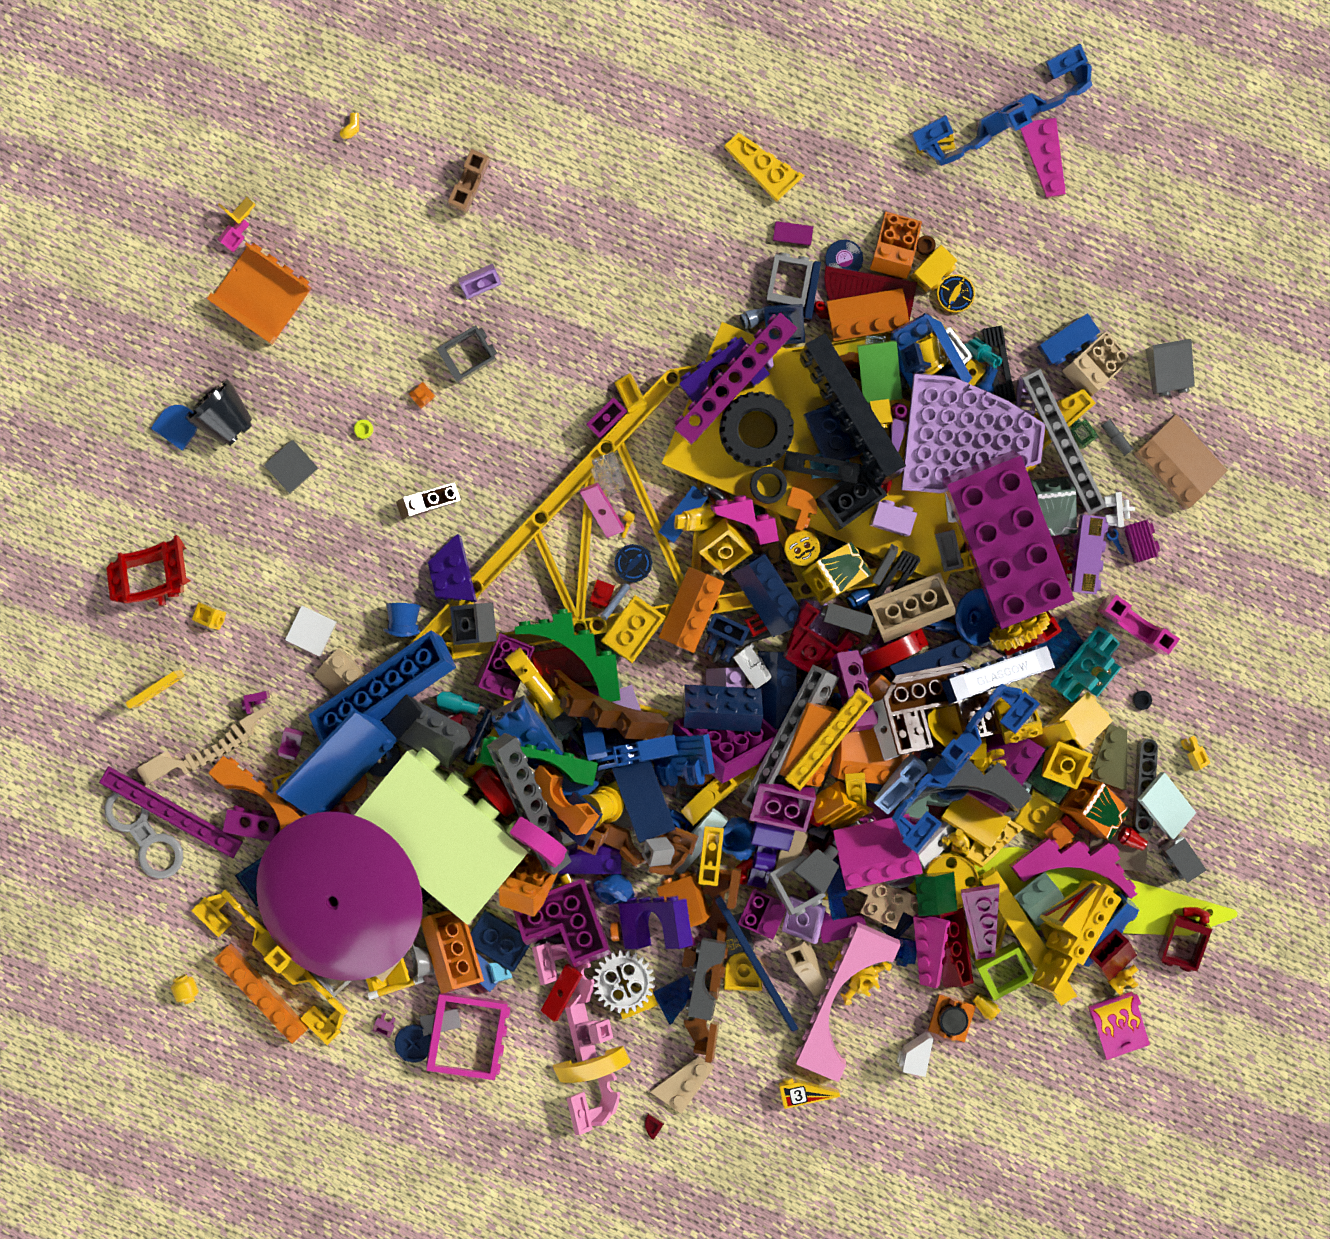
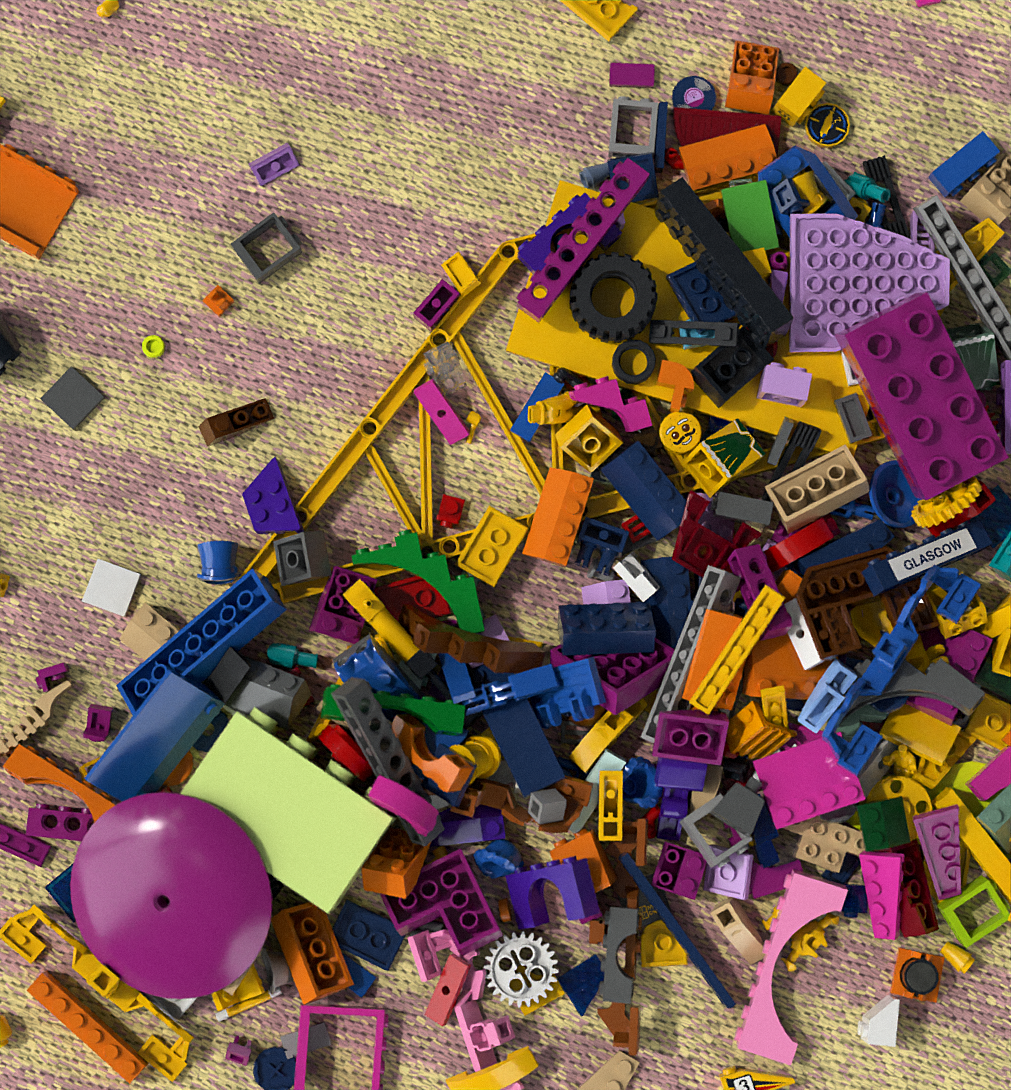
camera: 10 degrees left, 5 degrees down
(472, 175) = (255, 41): medium nougat arch -> none
(482, 730) = (325, 680): dark blue pin -> none
(498, 972) = (370, 974): medium azure tile -> none
(615, 601) = (466, 518): sand blue piece -> none
(633, 563) = (484, 471): tile -> none
(860, 598) = (754, 486): blue cone -> none

